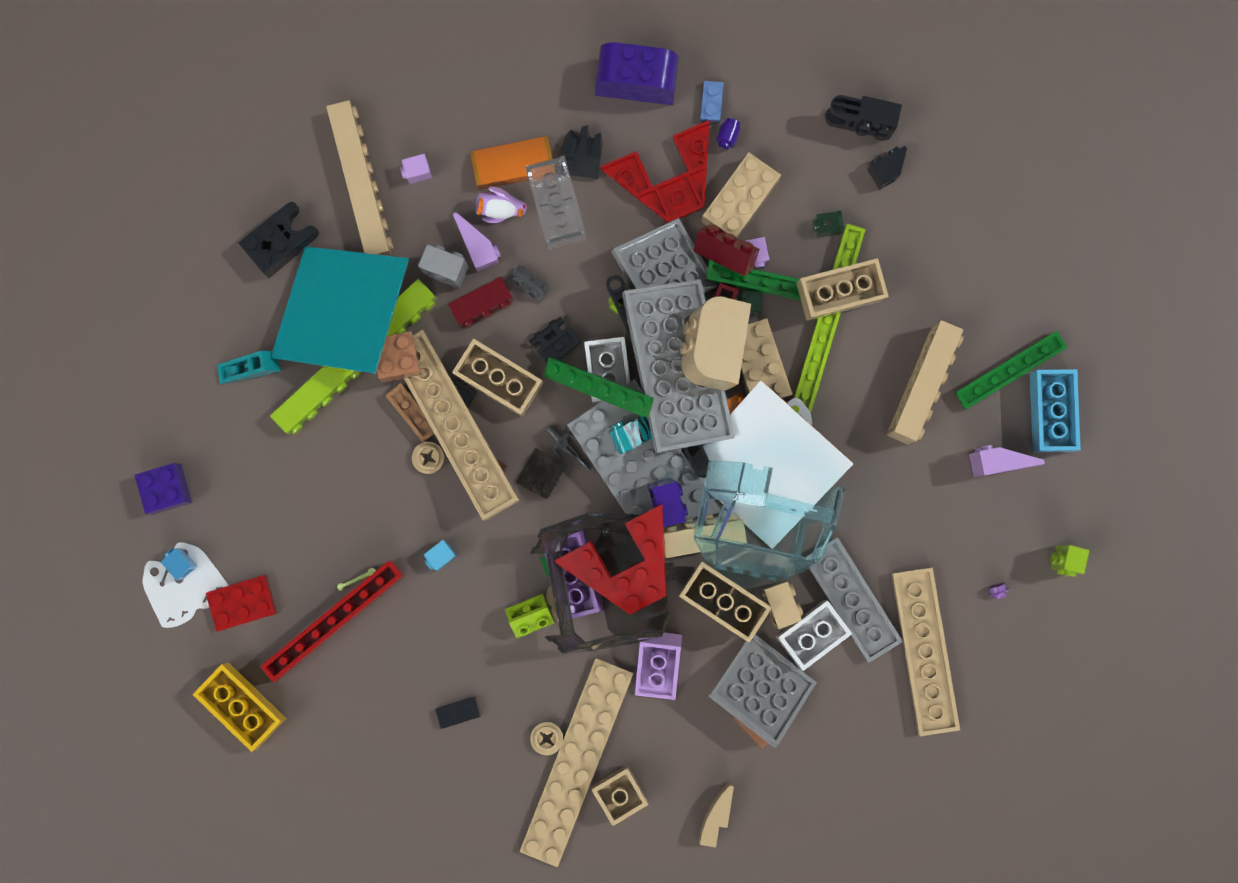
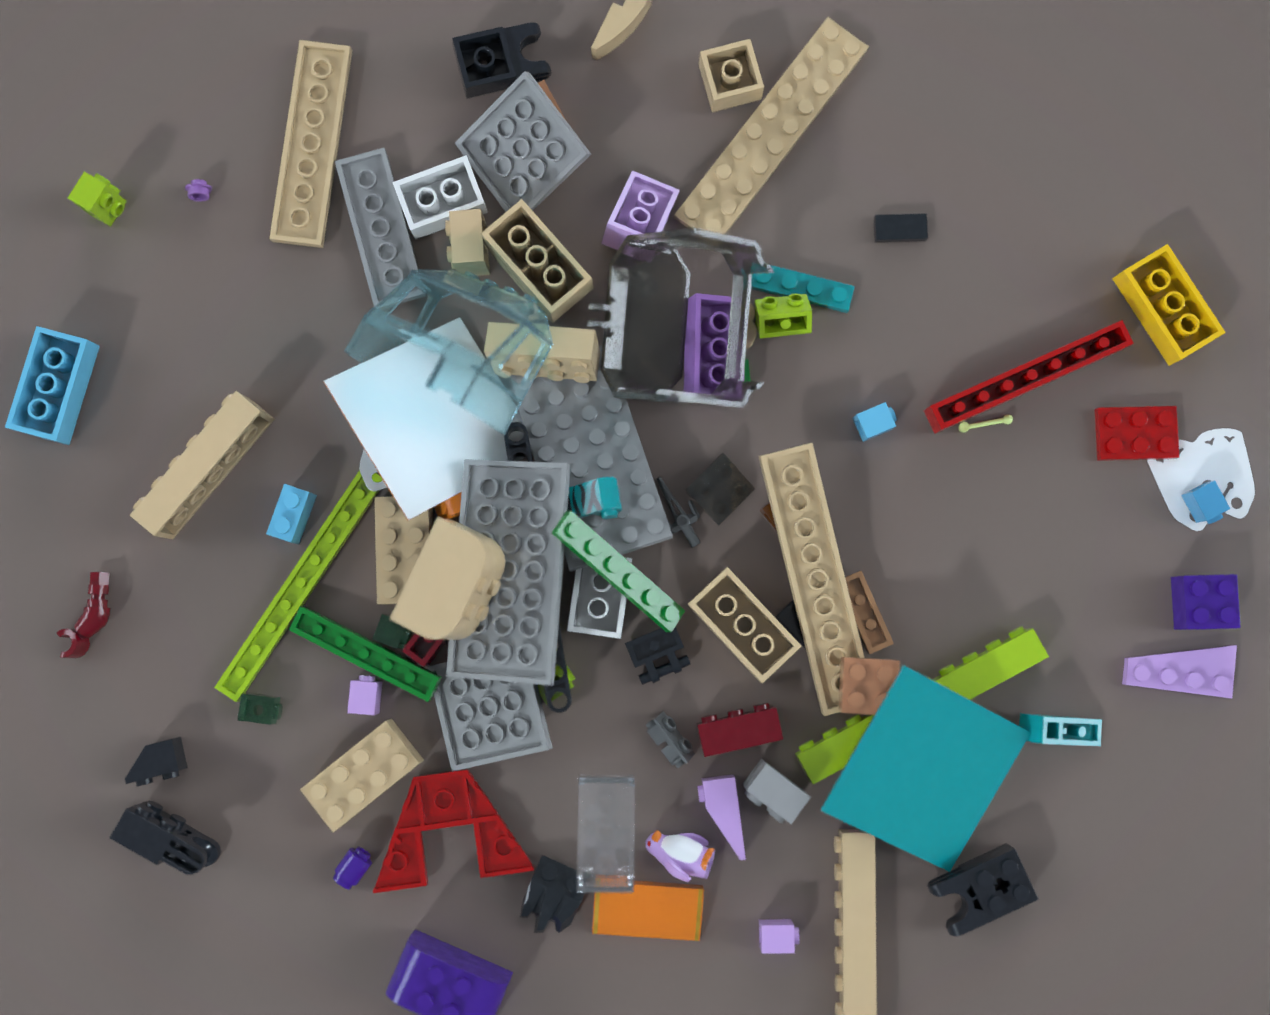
camera: 160 degrees left, 0 degrees up
(160, 436) = (1193, 671): none -> lavender wing
(426, 448) = (871, 549): tan gear -> none
(511, 646) = (819, 290): none -> teal plate
(556, 738) = (804, 157): tan gear -> none
(636, 585) = (647, 308): red wing -> none
(668, 492) = (573, 401): dark purple brick -> none
(711, 101) = (361, 918): medium blue plate -> none
(726, 249) = (402, 708): dark red brick -> none
(800, 764) = (502, 51): none -> black brick
(842, 289) = (268, 612): tan brick -> none
(850, 367) = (291, 514): none -> medium azure brick
(968, 255) = (93, 618): none -> dark red piece
(992, 460) = (151, 342): lavender slope -> none
(1010, 370) = (90, 454): green plate -> none

